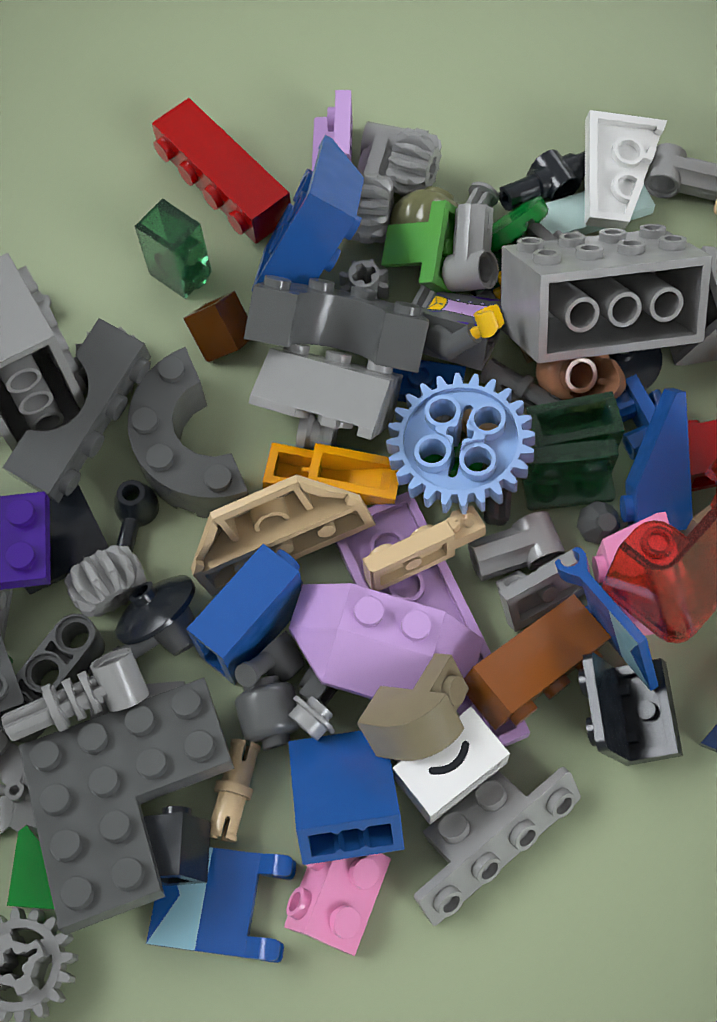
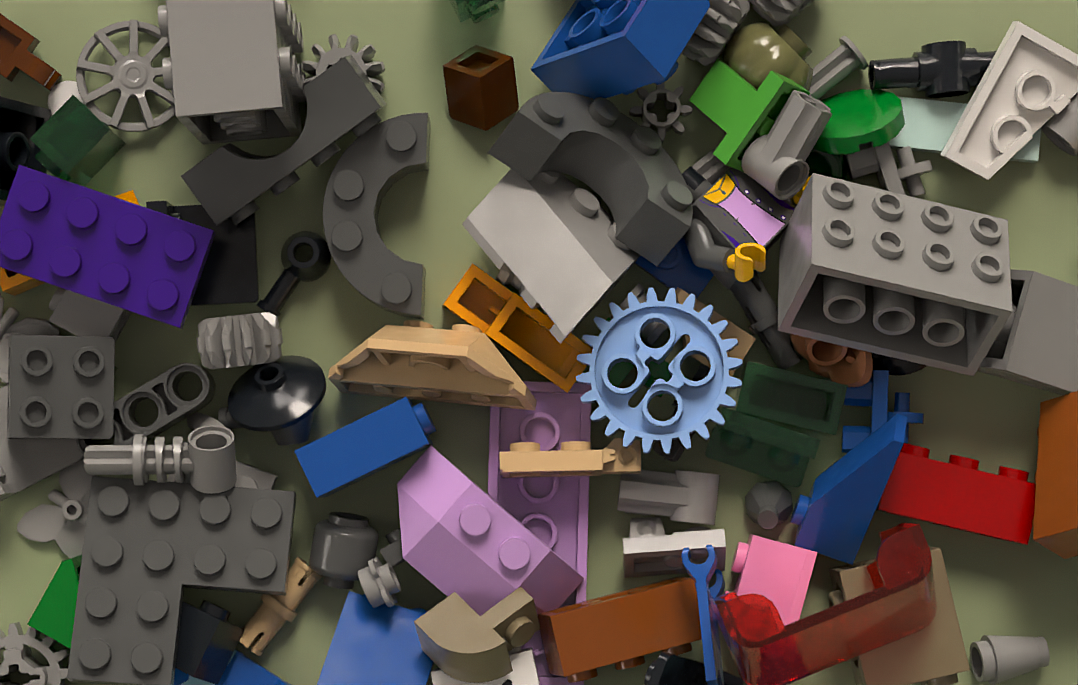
camera: 25 degrees right, 20 degrees up
(278, 659) = (374, 498): dark grey bar -> none

